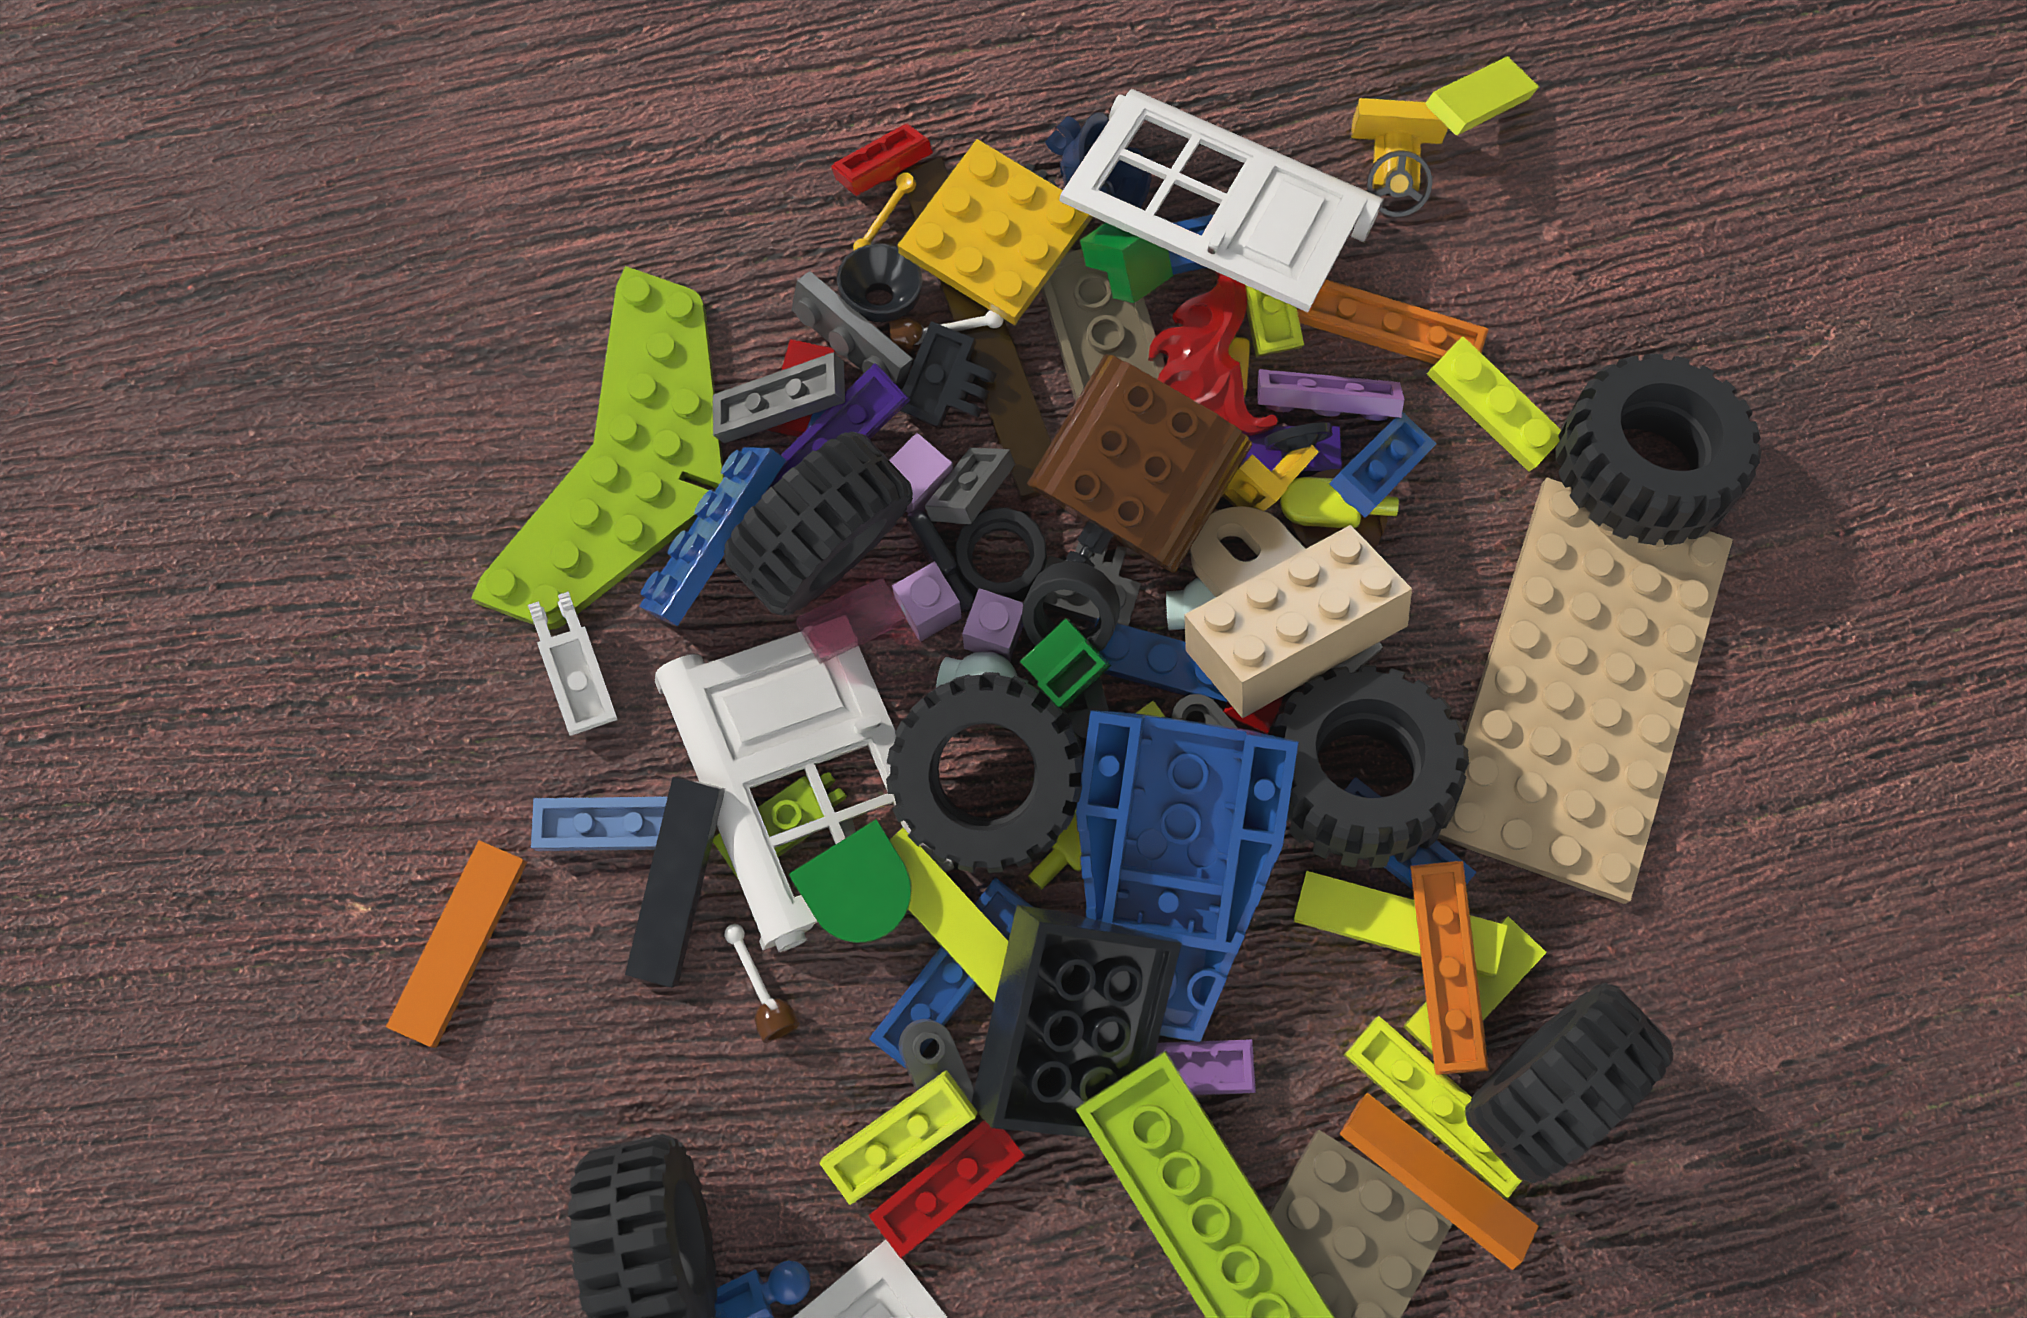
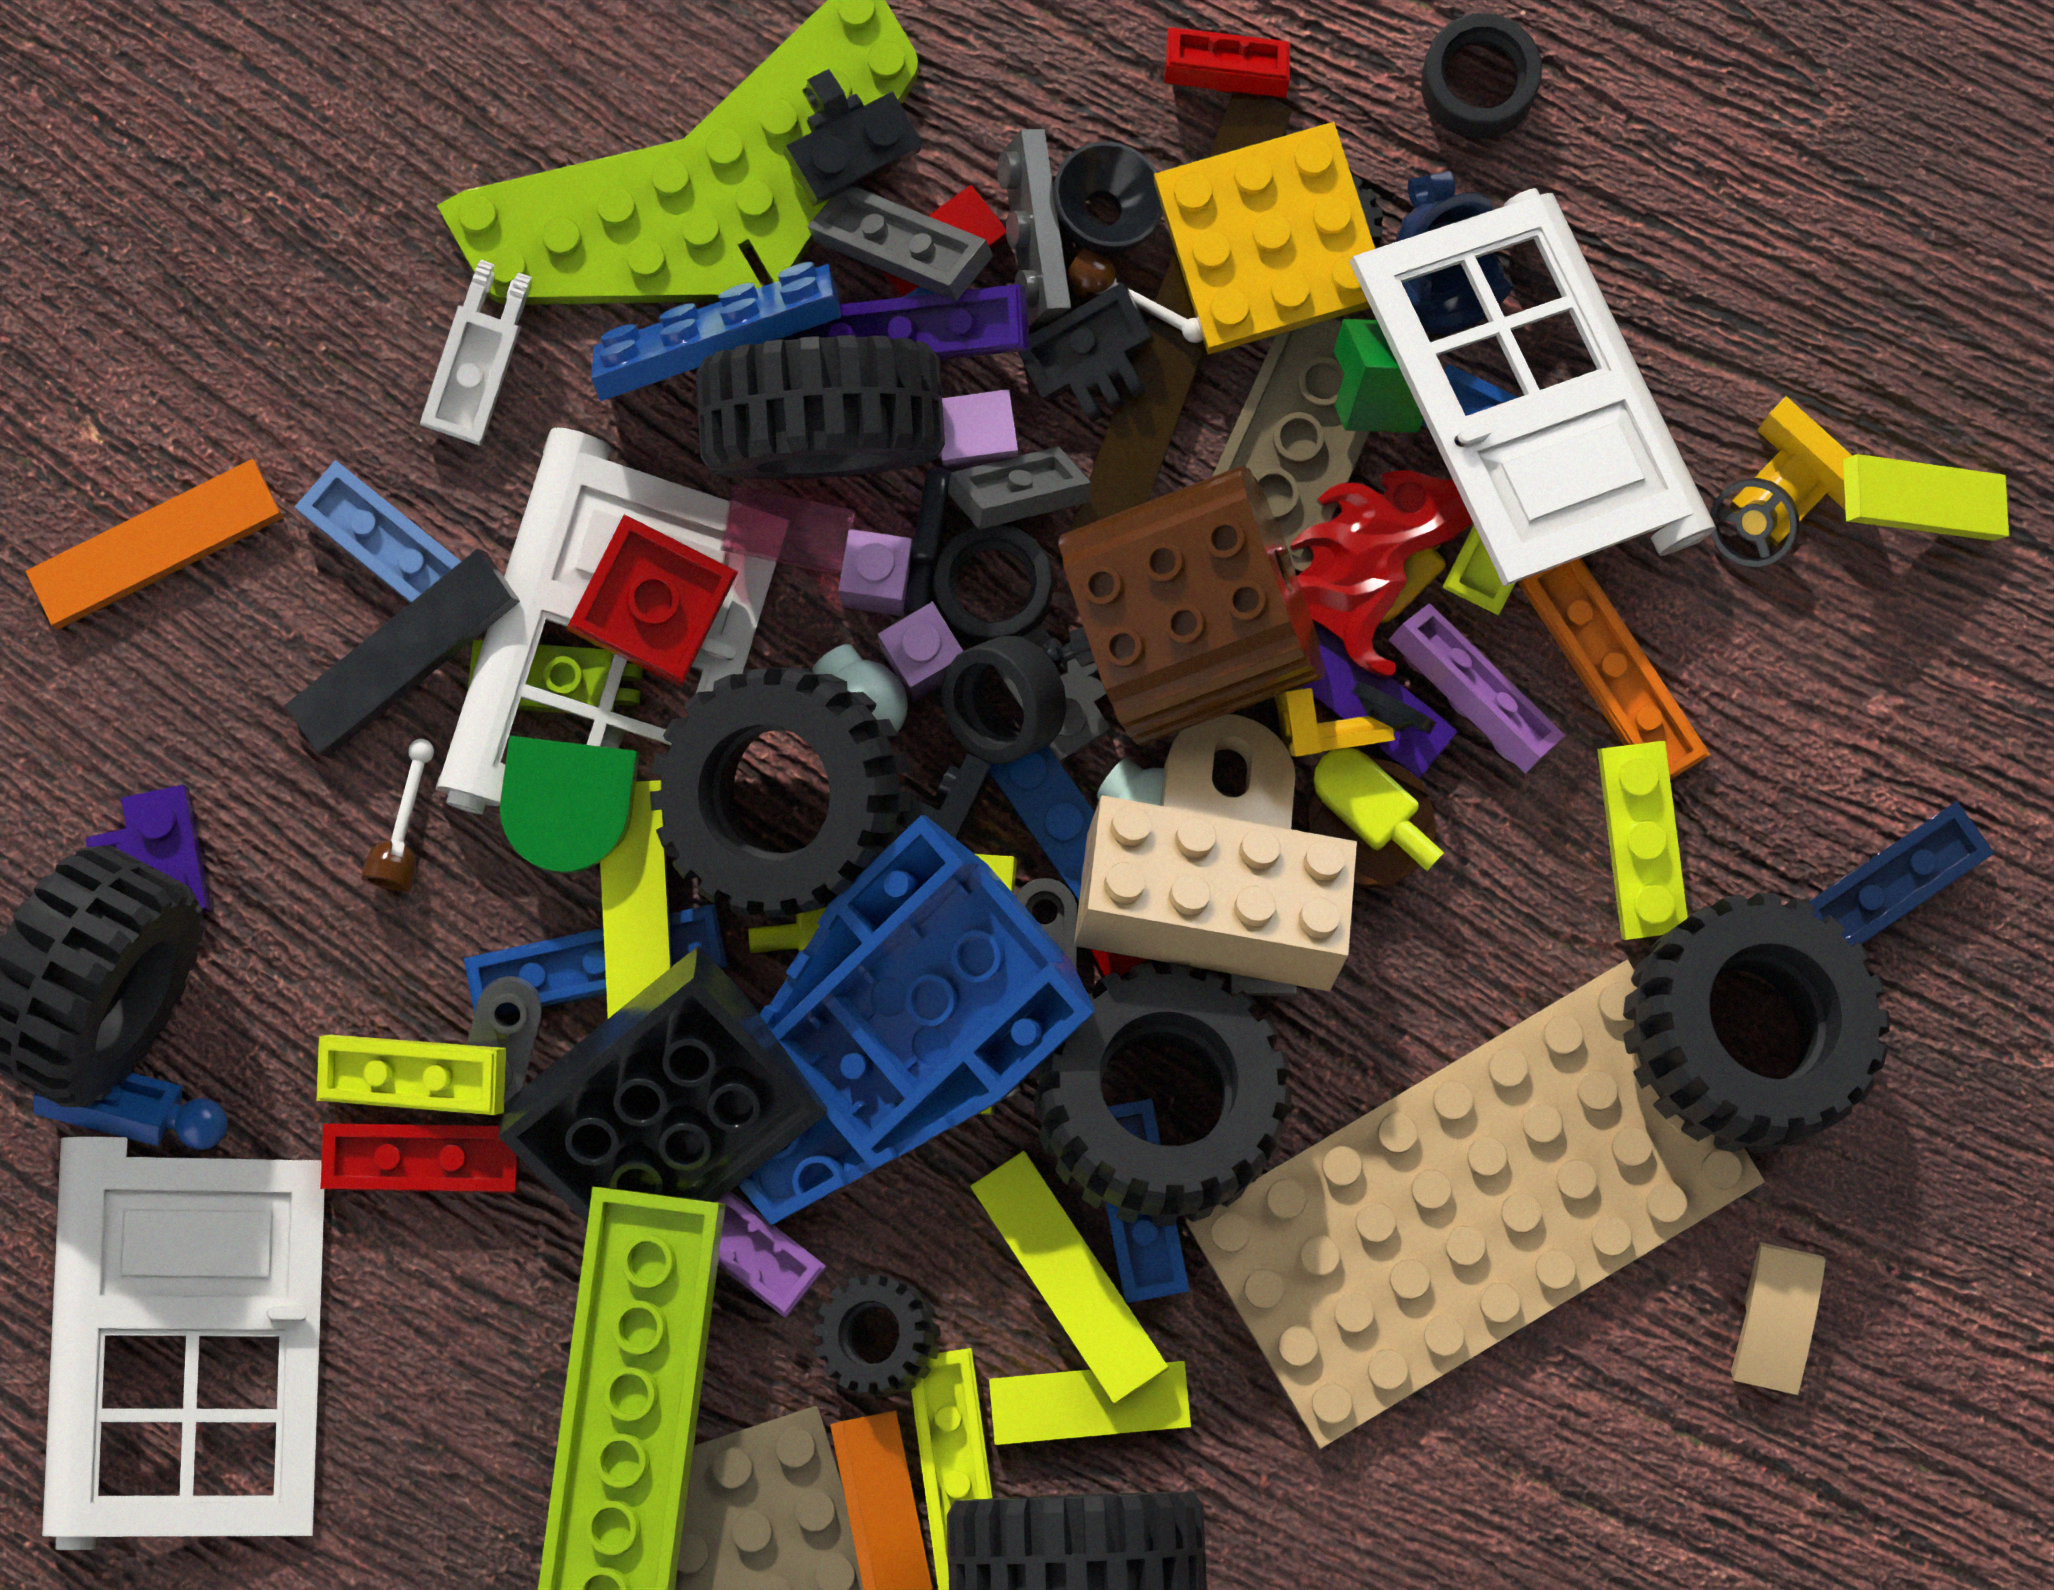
camera: 40 degrees right, 5 degrees up
(607, 1120) = (162, 835): none -> dark purple hinge
(695, 365) = (848, 139): none -> black hinge
(806, 724) = (652, 600): none -> red plate
(905, 184) = (1227, 109): yellow hinge -> none
(1040, 30) = (1501, 35): none -> black tyre
(1065, 664) = (947, 749): green piece -> none
(1297, 1079) = (840, 1331): none -> black tyre
(1382, 464) = (1457, 806): blue plate -> none
(1449, 968) = (1073, 1356): orange tile -> none
(1652, 304) = (1904, 875): none -> dark blue plate
(1810, 605) = (1778, 1318): none -> tan slope

